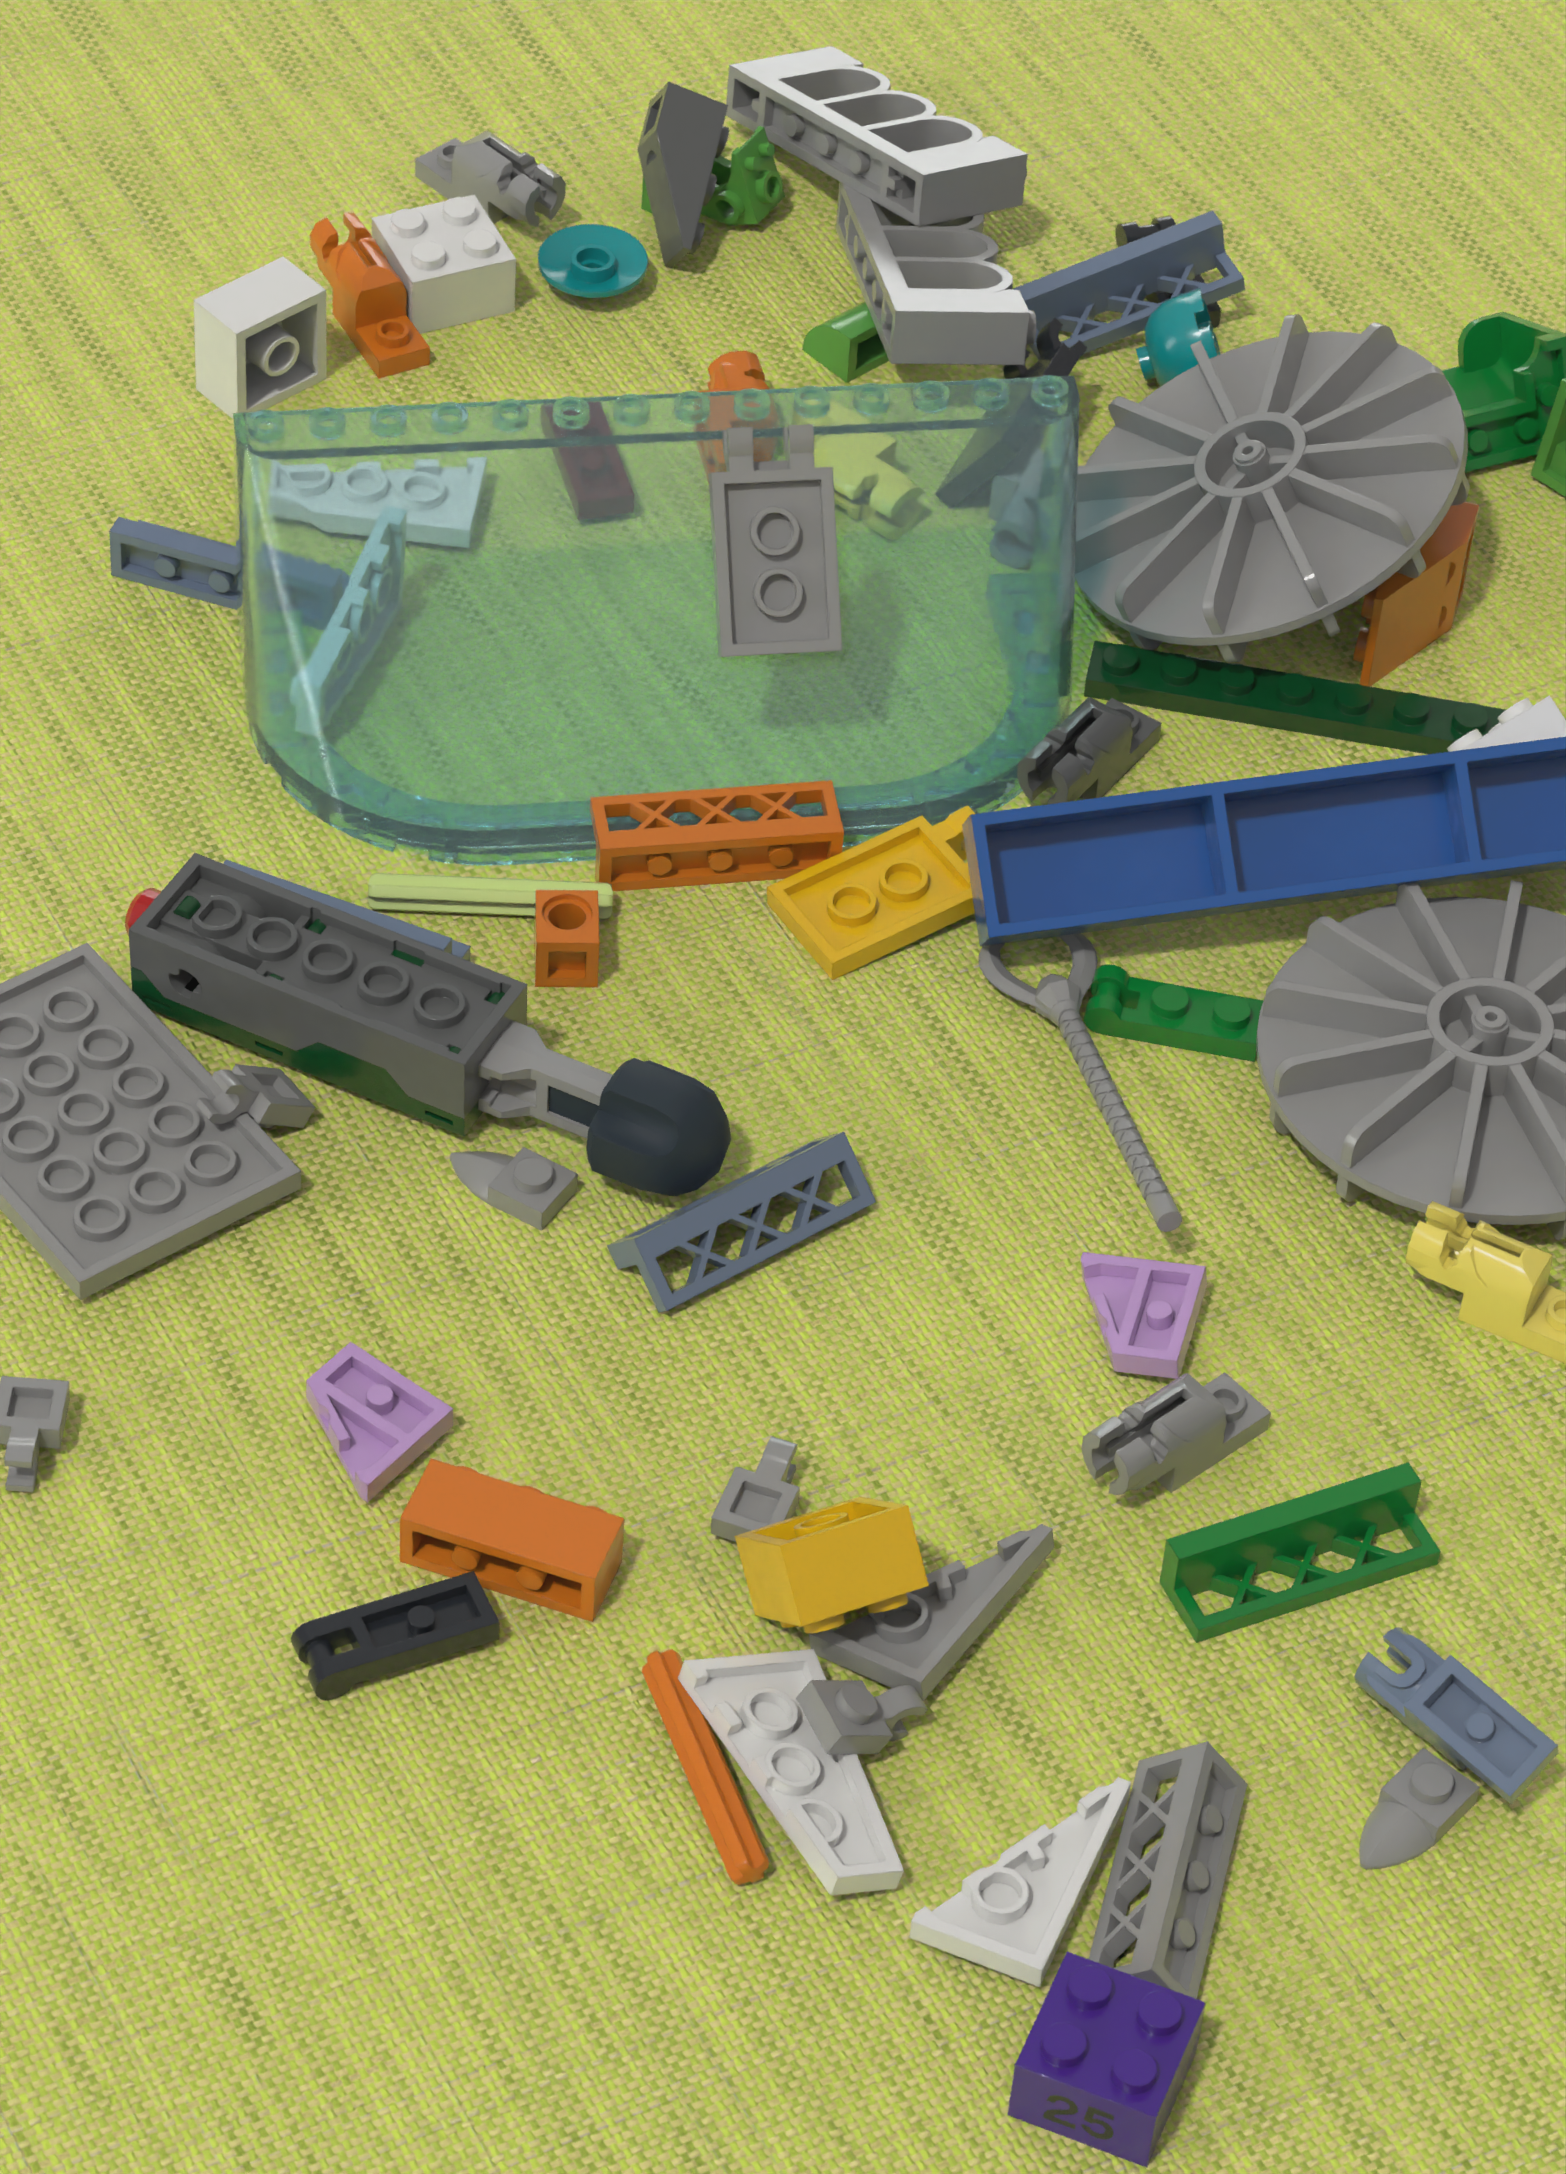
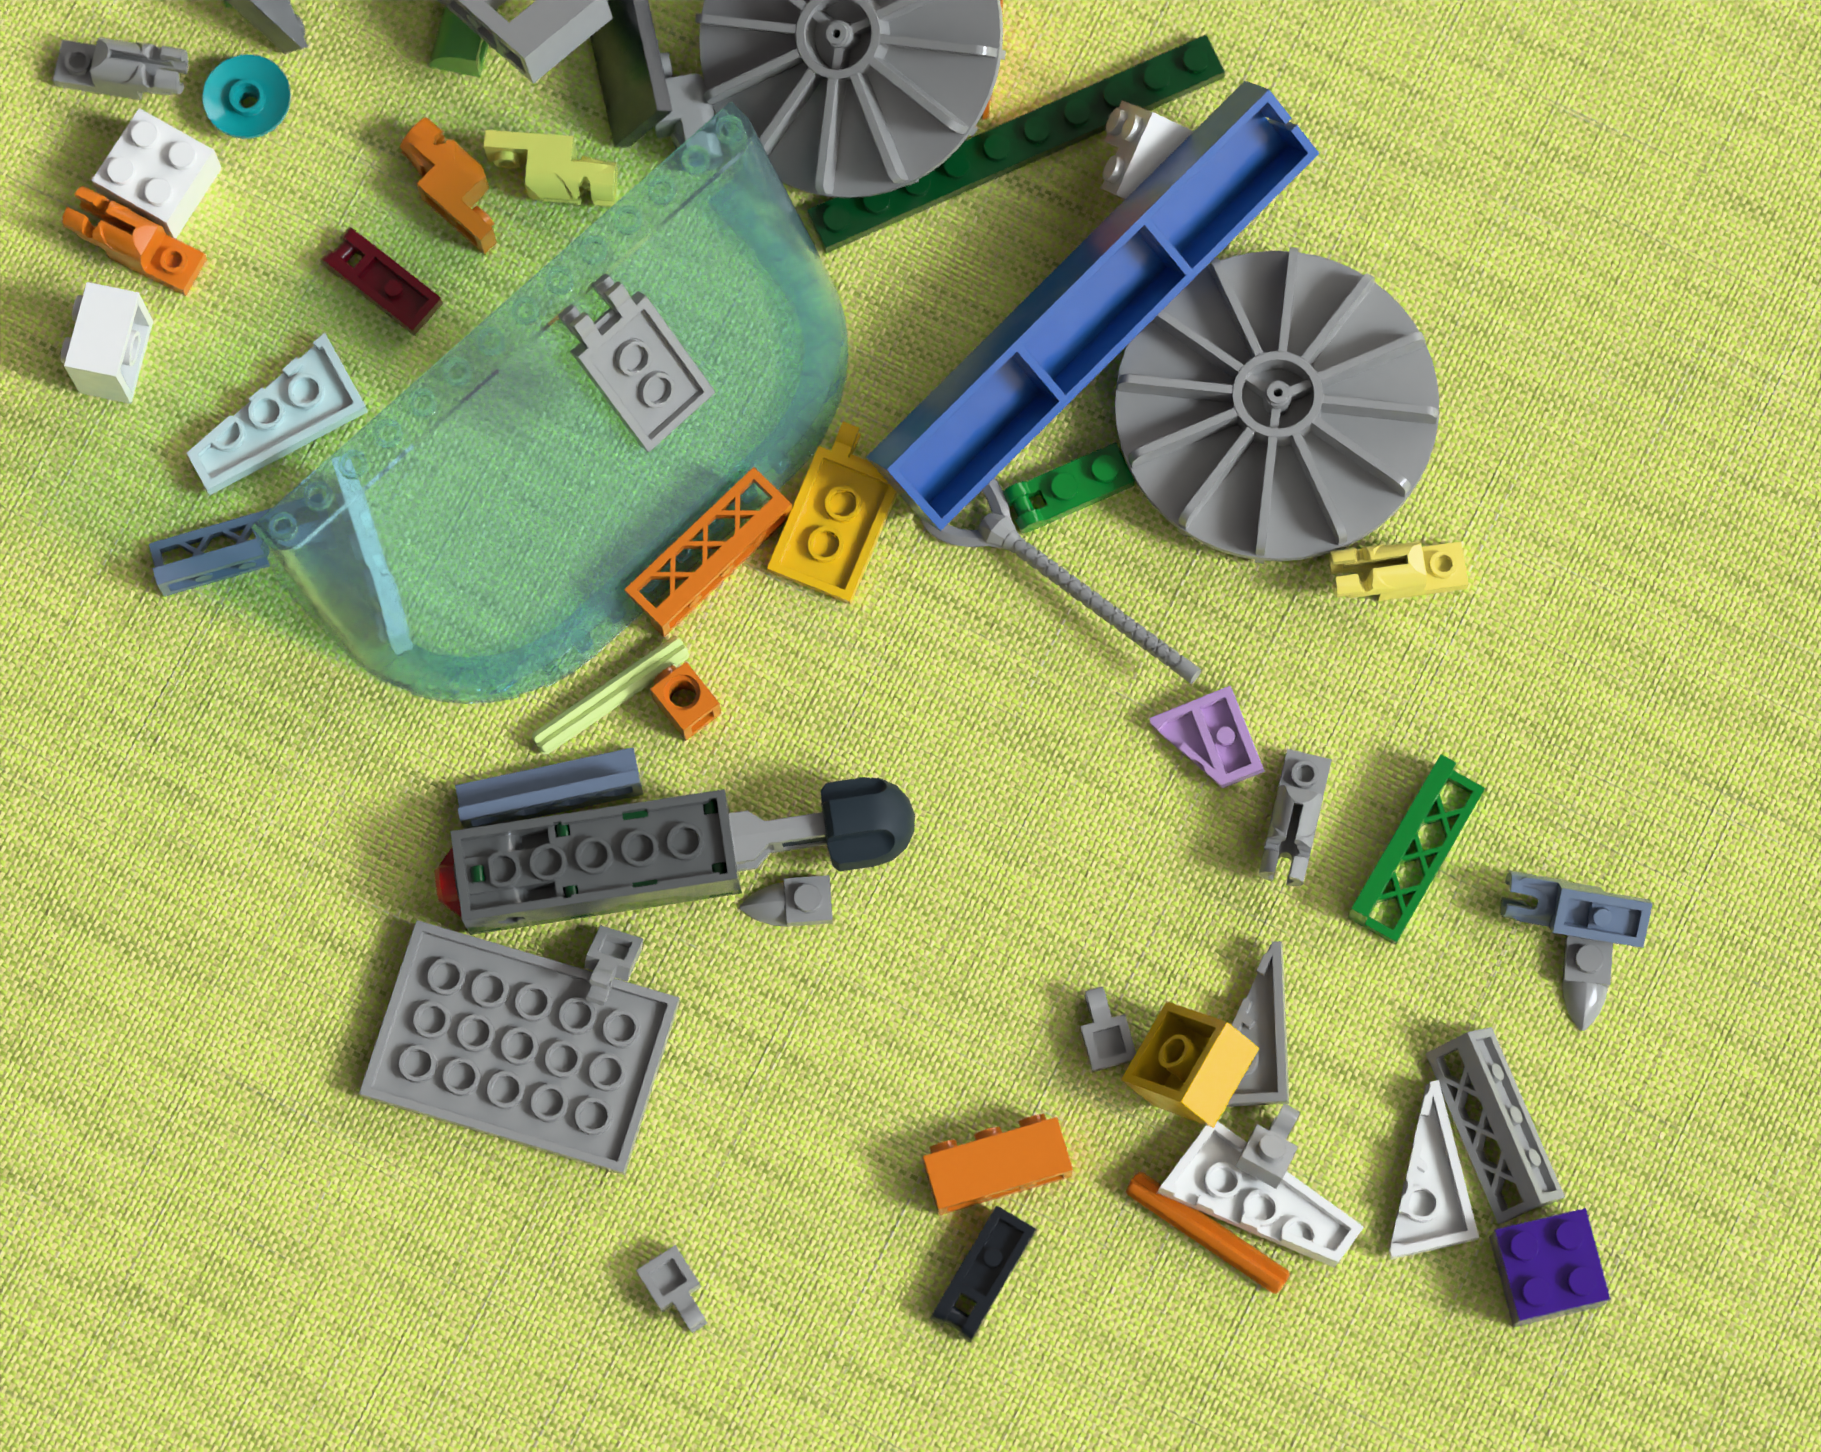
camera: 30 degrees left, 30 degrees up
(374, 1417) = (855, 1137): lavender wing -> none
(734, 1198) = (938, 831): sand blue fence -> none
(1088, 751) = (875, 312): dark grey plate -> none

